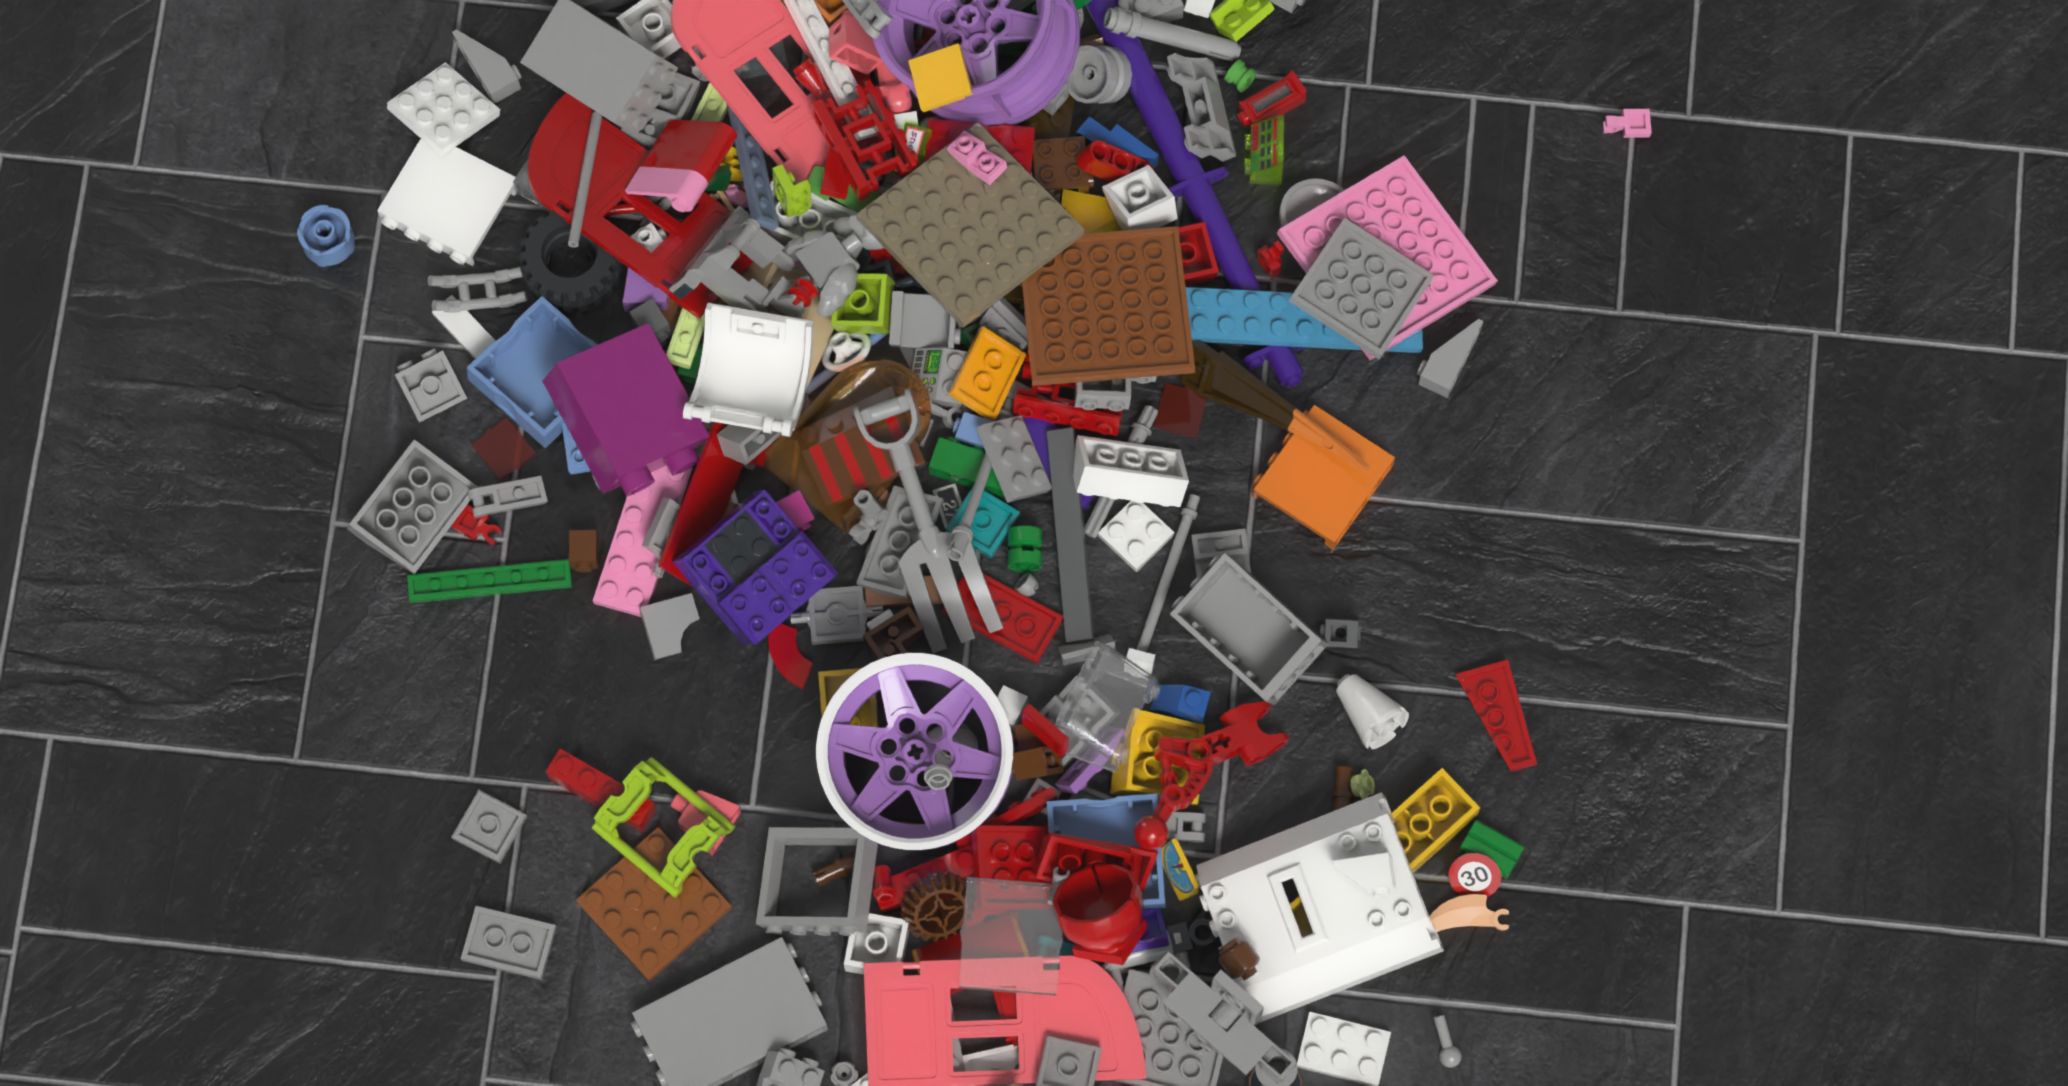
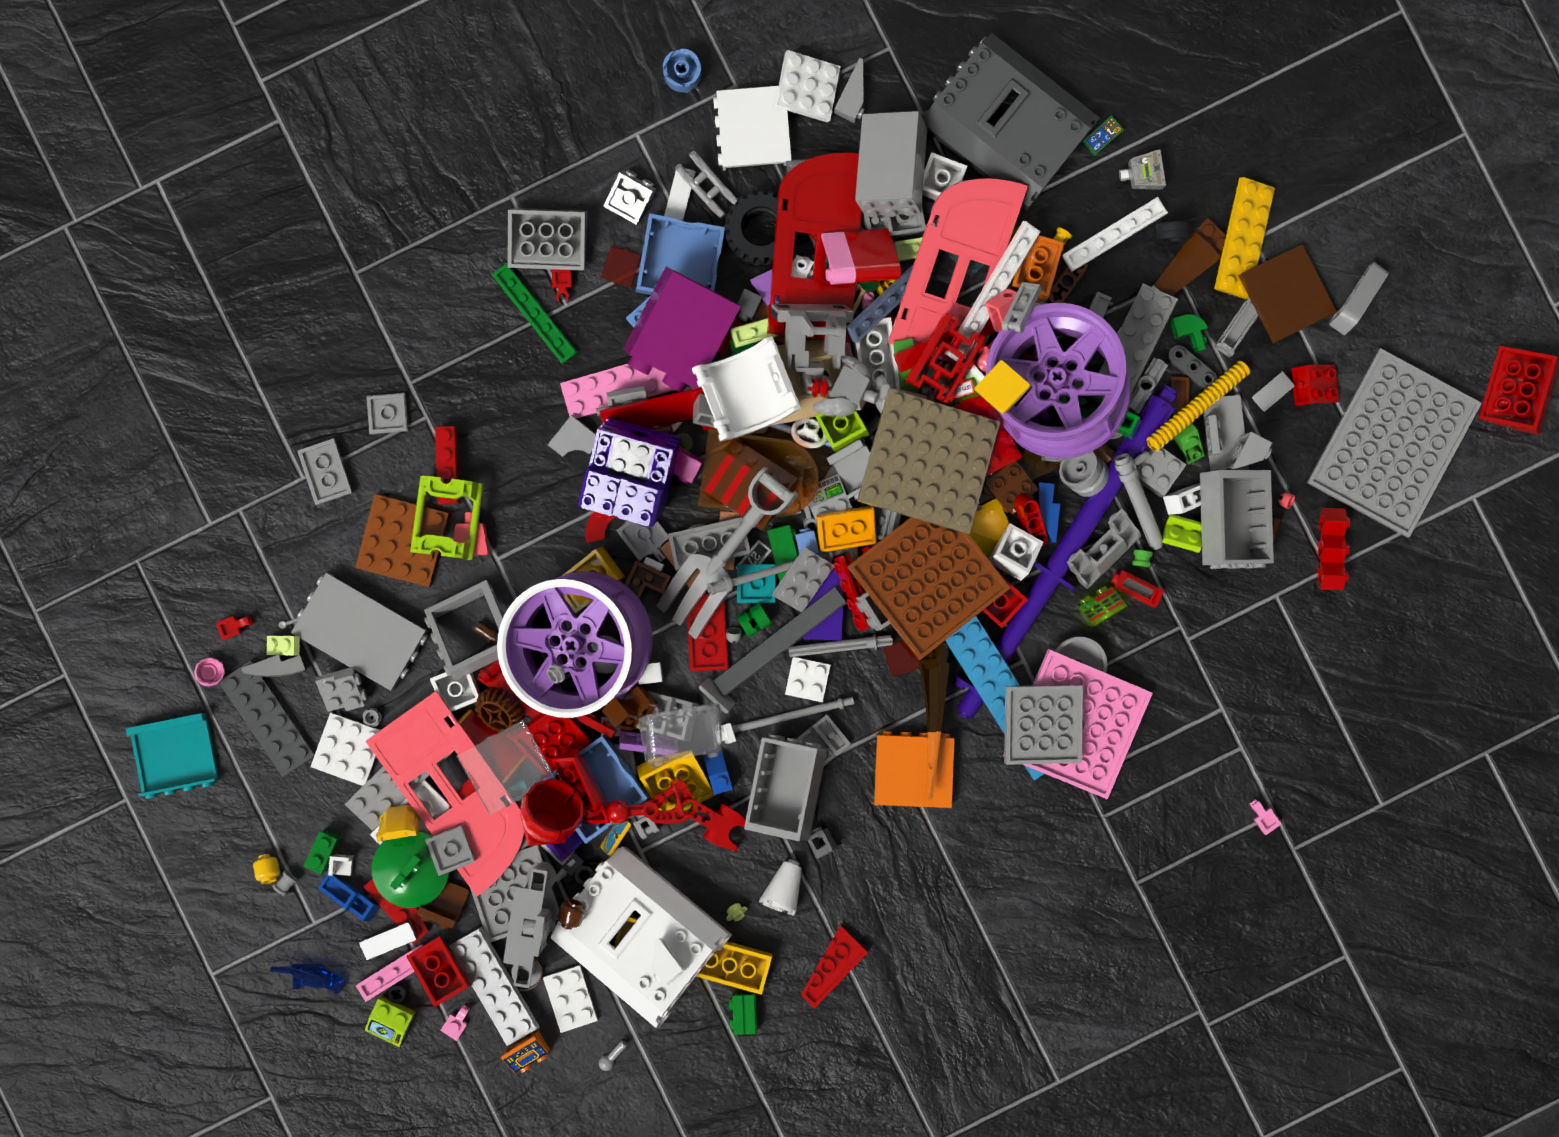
camera: 60 degrees right, 15 degrees up
(508, 496) = (590, 291): light grey plate -> none
(583, 550) = (586, 357): reddish brown brick -> none
(585, 178) = (808, 206): light grey piece -> none
(792, 197) = (879, 340): lime bracket -> none
(811, 77) = (967, 298): red cone -> none
(873, 516) = (712, 517): light grey bar -> none
(976, 158) = (973, 438): bright pink slope -> none
(1045, 730) = (640, 709): red tile -> none
(1056, 881) = (554, 775): light grey hand -> none
(1129, 471) = (840, 653): white slope -> none
(1270, 259) = (1032, 652): red plate -> none
(1342, 793) = (723, 903): reddish brown pin -> none
(1447, 361) = (1031, 801): light grey slope -> none
(1467, 911) = (698, 1020): light nougat piece -> none
(1474, 875) = (721, 1013): sticker -> none

